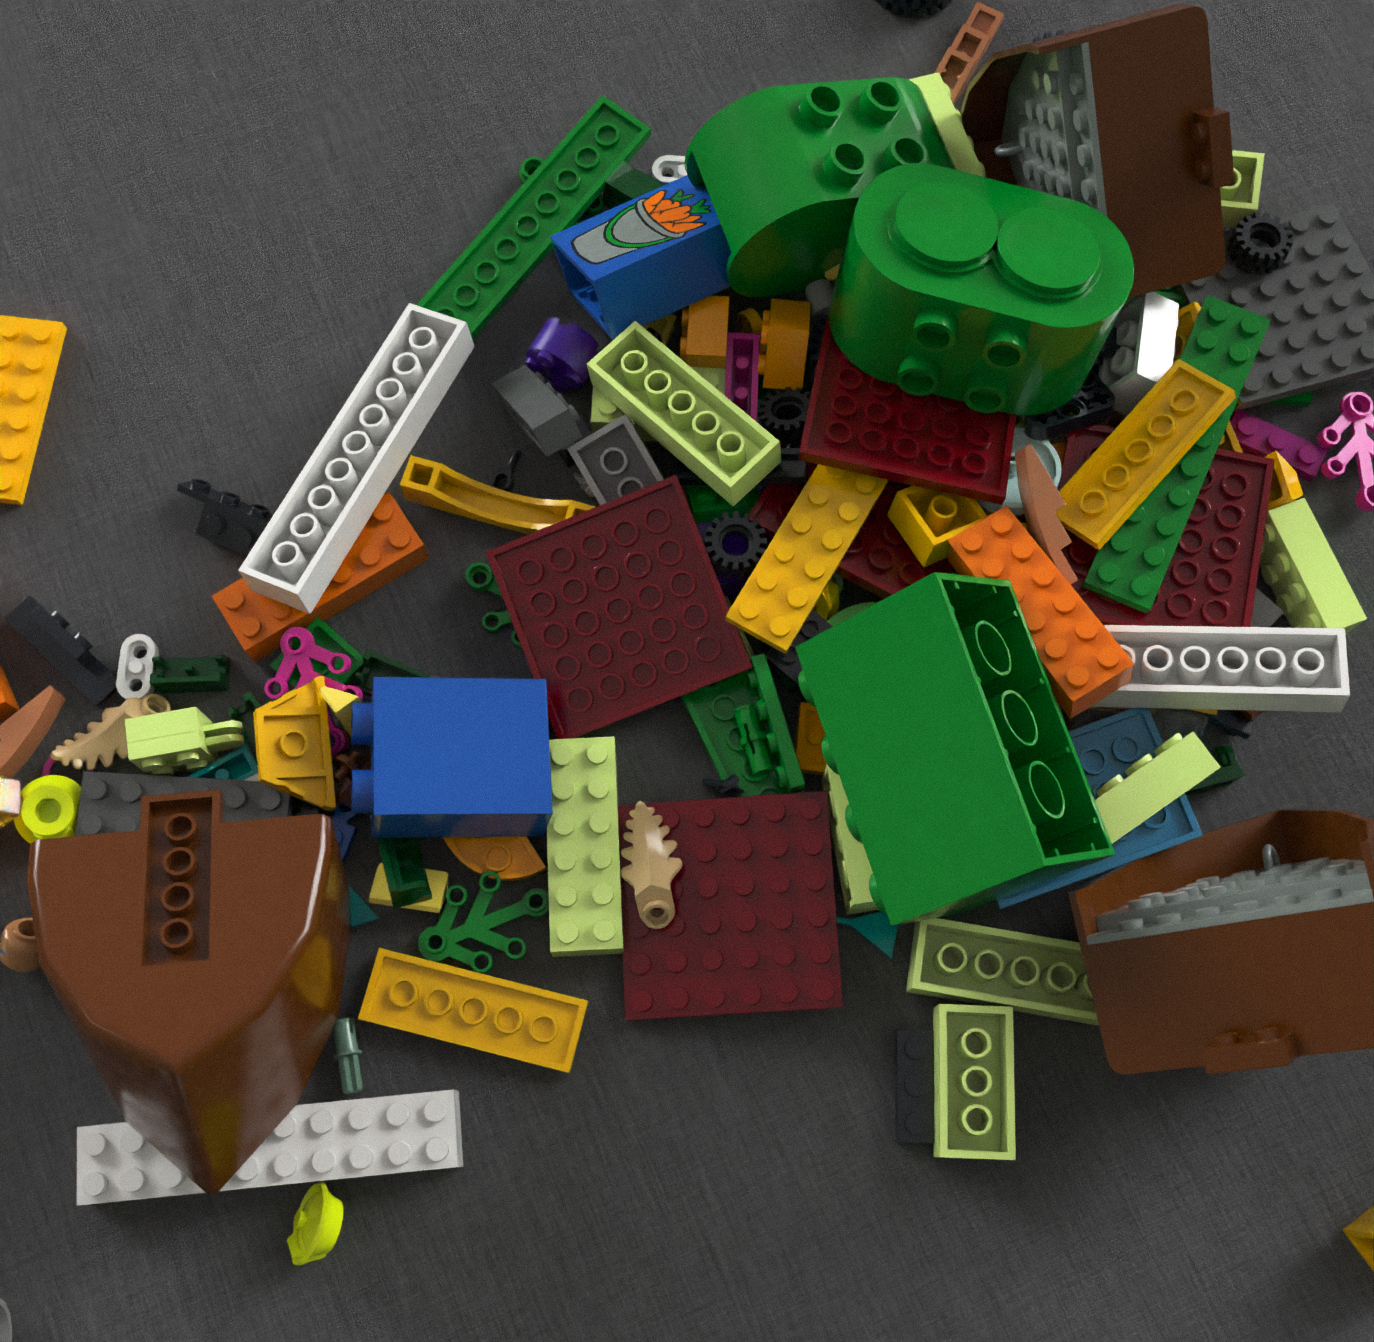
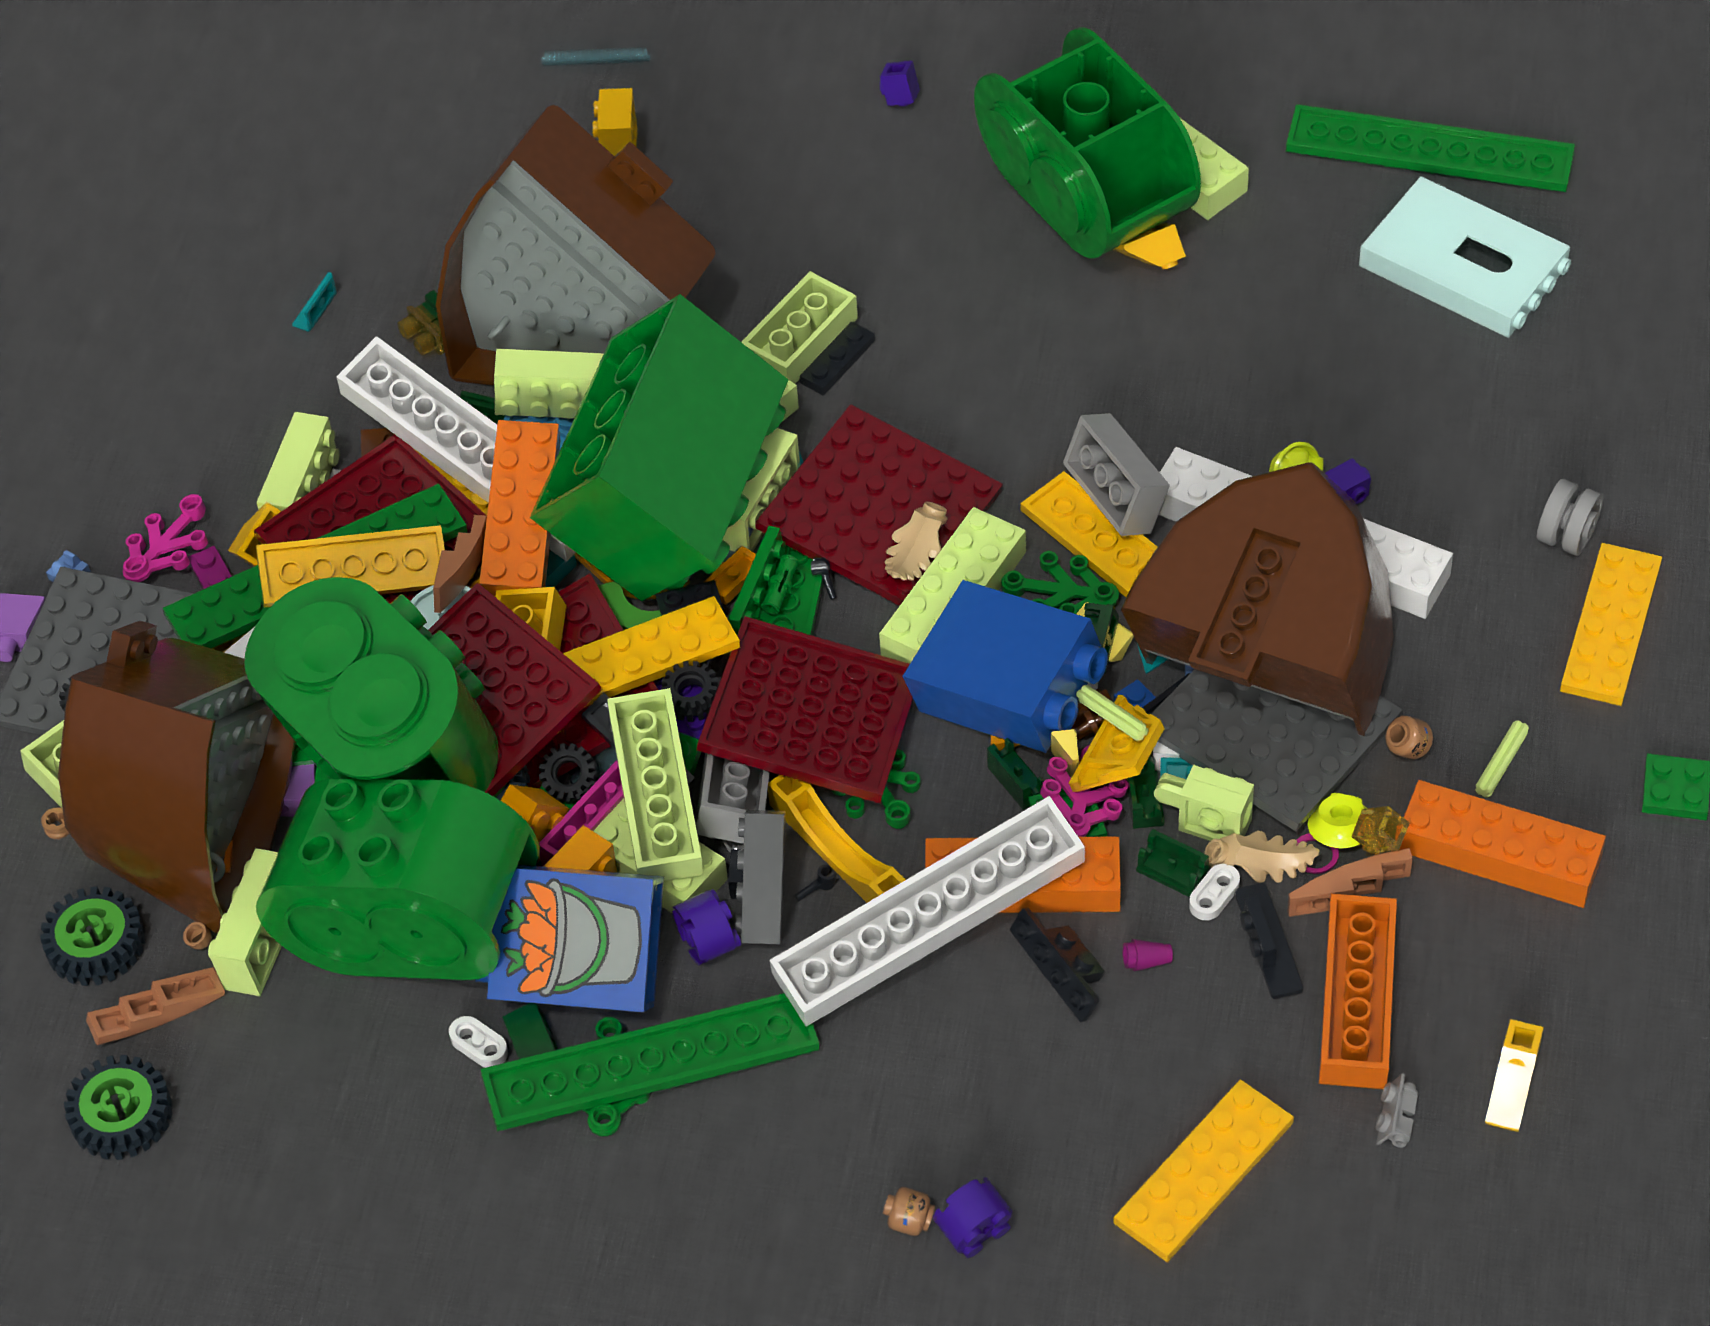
camera: 140 degrees left, 20 degrees down
(166, 568) = (1145, 954): none -> magenta cone
(169, 244) = (974, 1216): none -> dark purple brick
(232, 231) = (909, 1211): none -> medium nougat head
(253, 1251) = (1352, 479): none -> dark purple brick
(310, 760) = (1112, 712): none -> yellowish green axle
(496, 1082) = (1116, 474): none -> light grey brick

